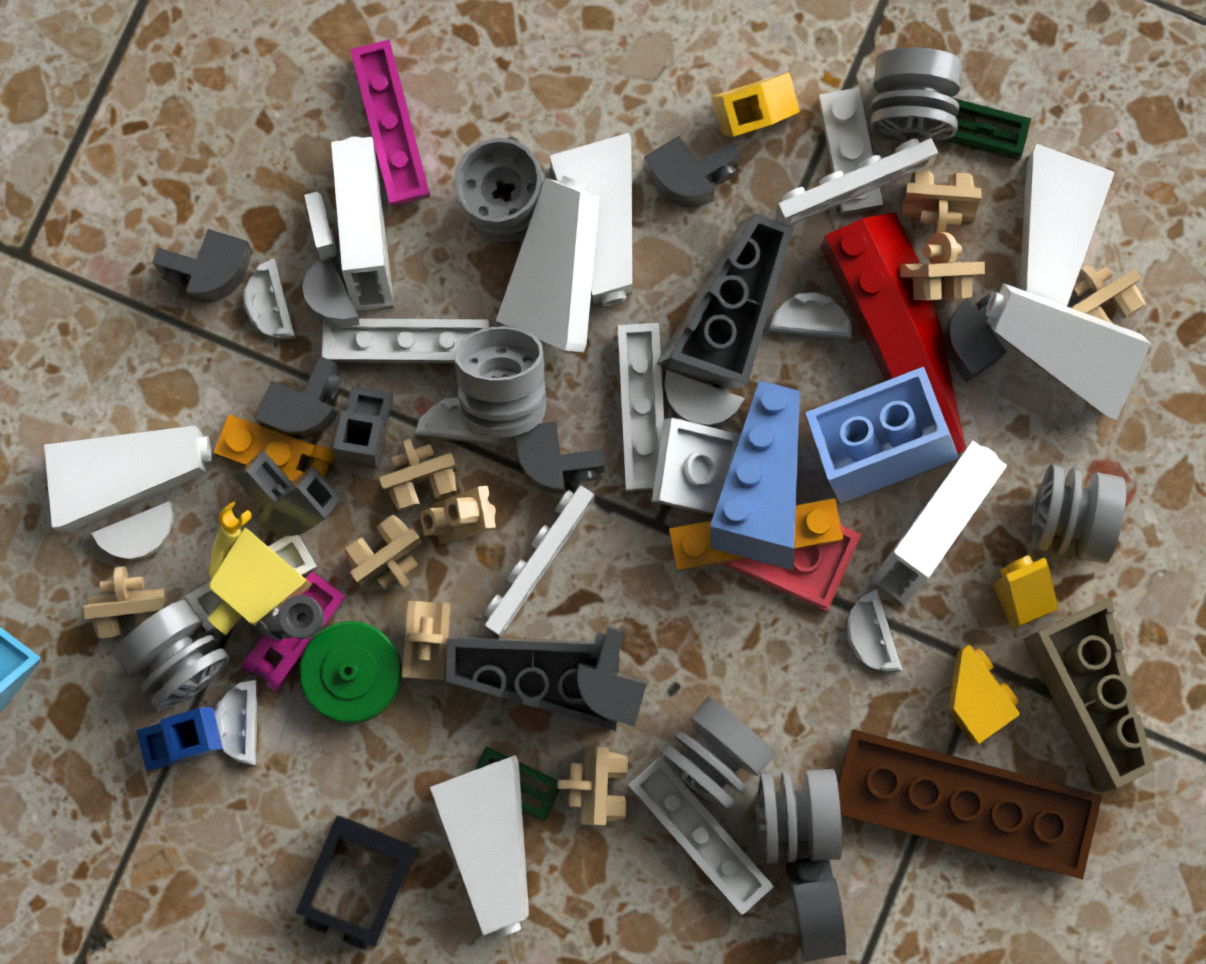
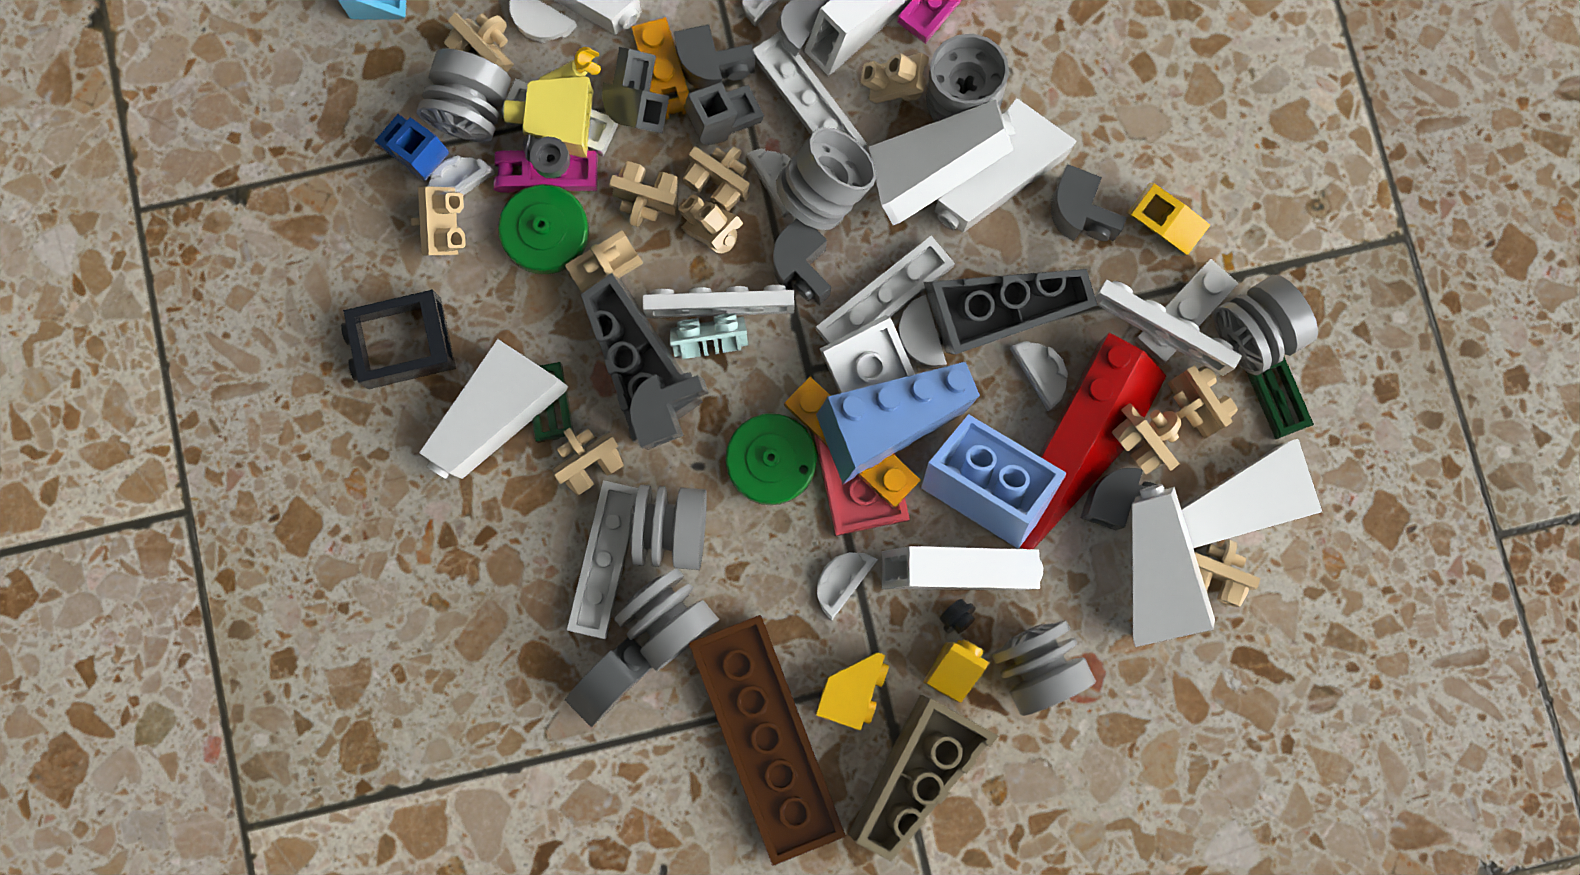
camera: 50 degrees right, 0 degrees up
(271, 765) = (439, 220): none -> tan hips
(448, 248) = (896, 78): none -> tan hips
(567, 575) = (689, 332): none -> light aqua hinge
(718, 618) = (771, 459): none -> green wheel
(979, 555) = (958, 616): none -> black plate

